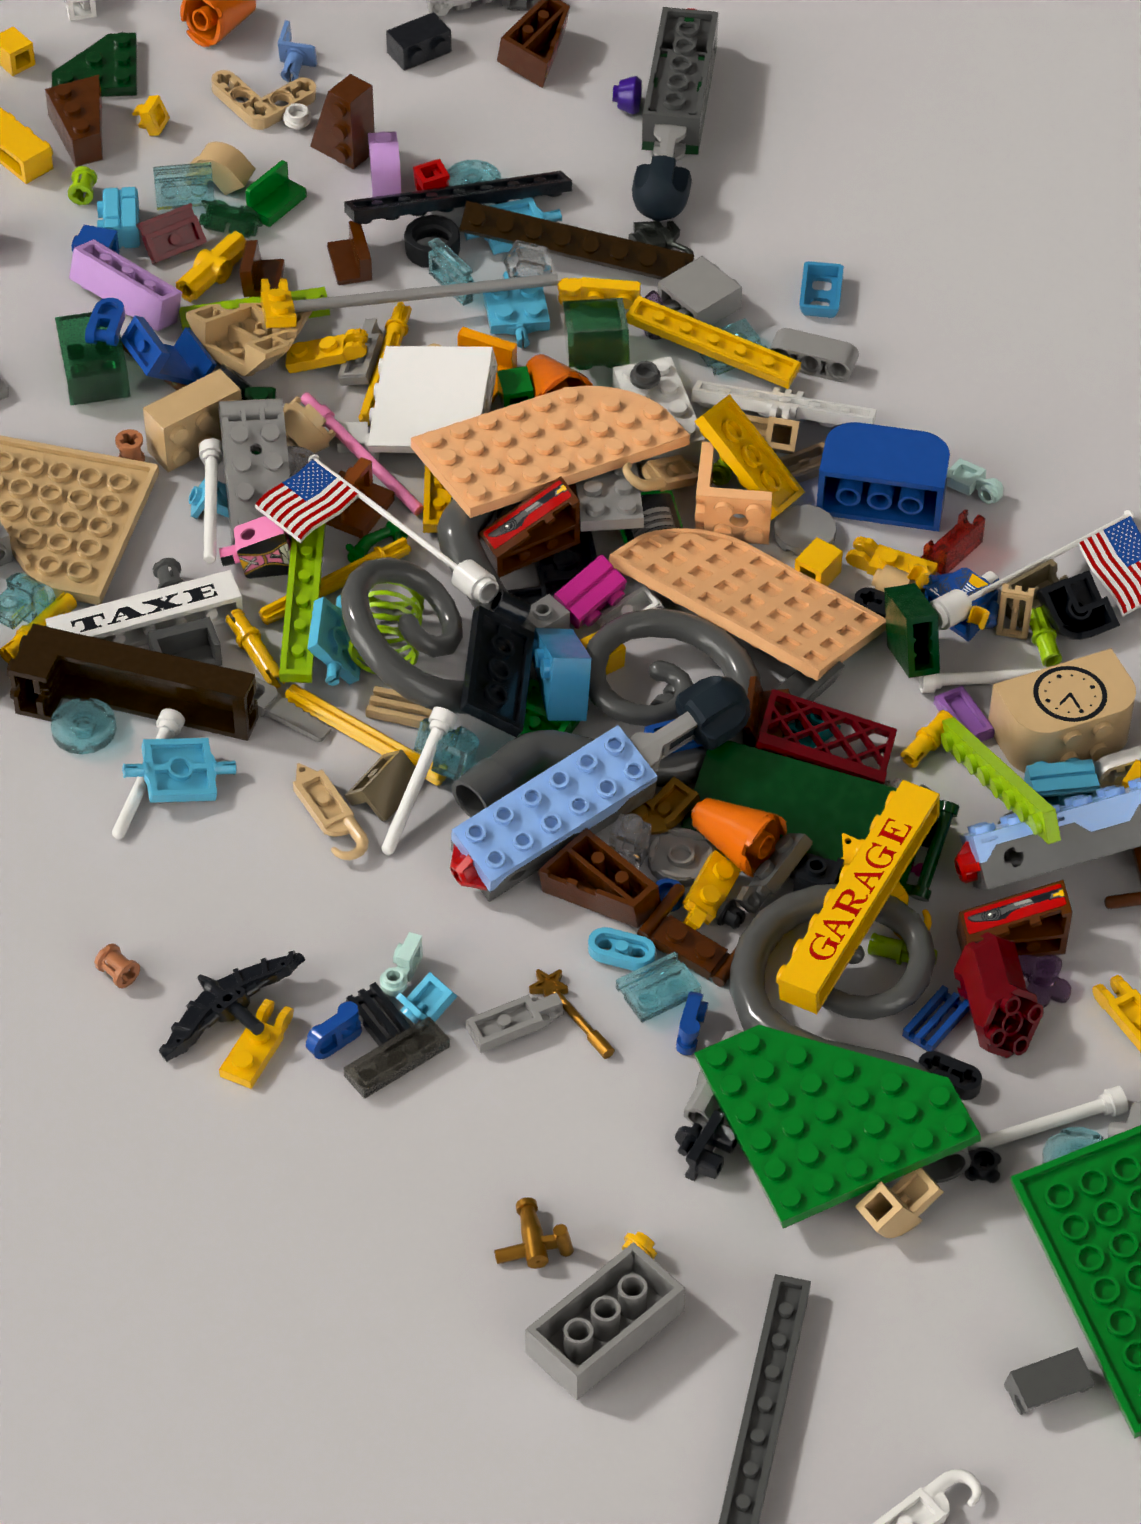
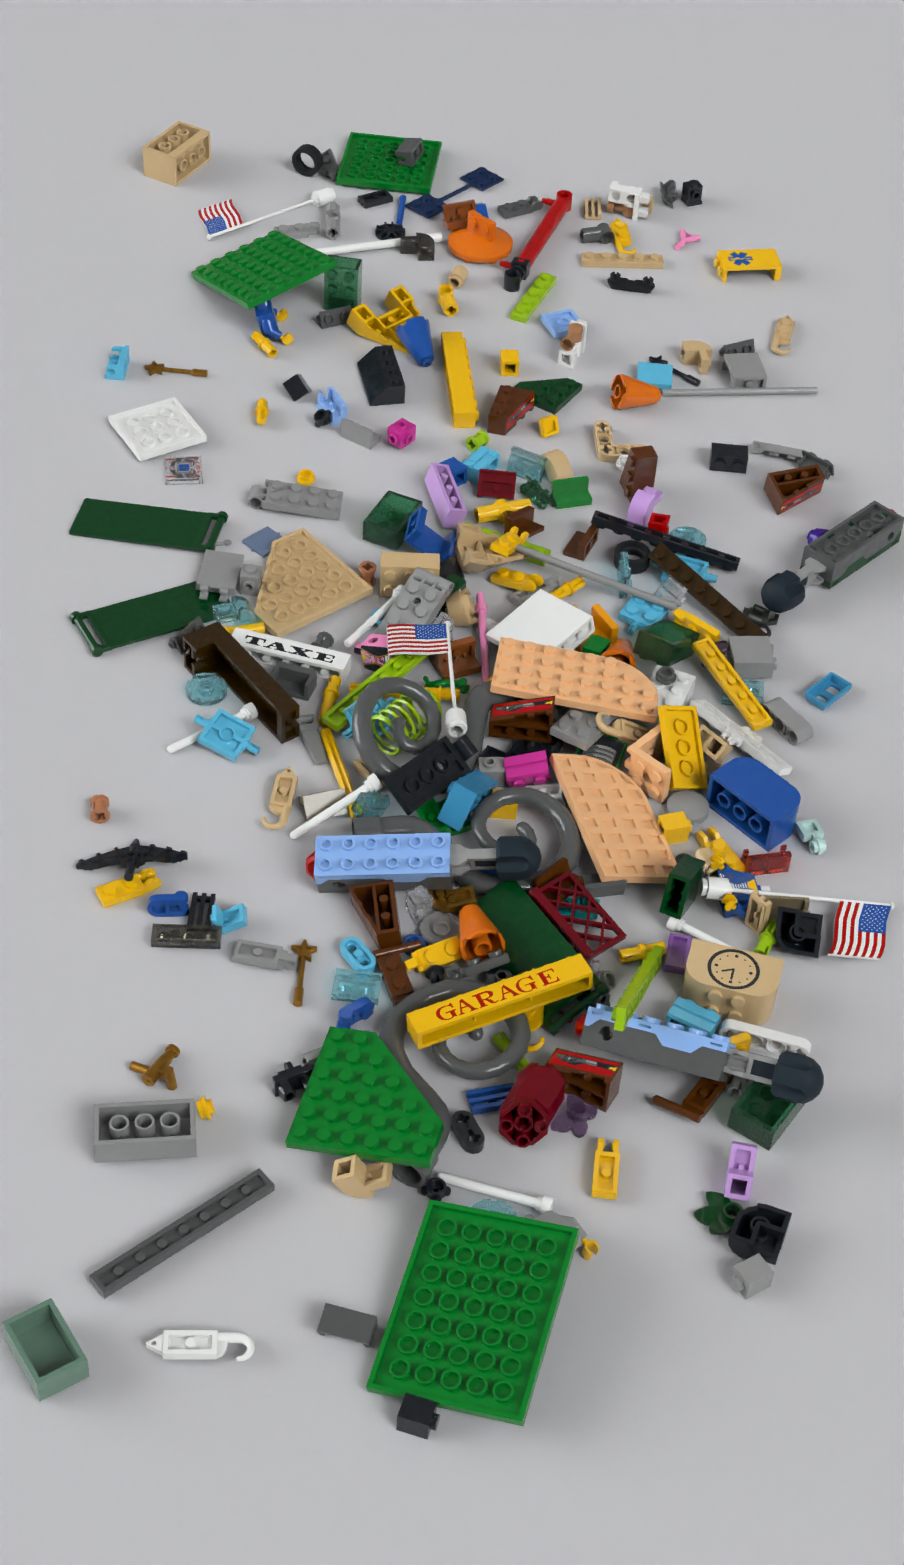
camera: 35 degrees right, 5 degrees down
(106, 313) = (407, 503): blue plate -> none
(294, 54) = (654, 431): medium blue bracket -> none
(407, 958) = (241, 893): light aqua plate -> none

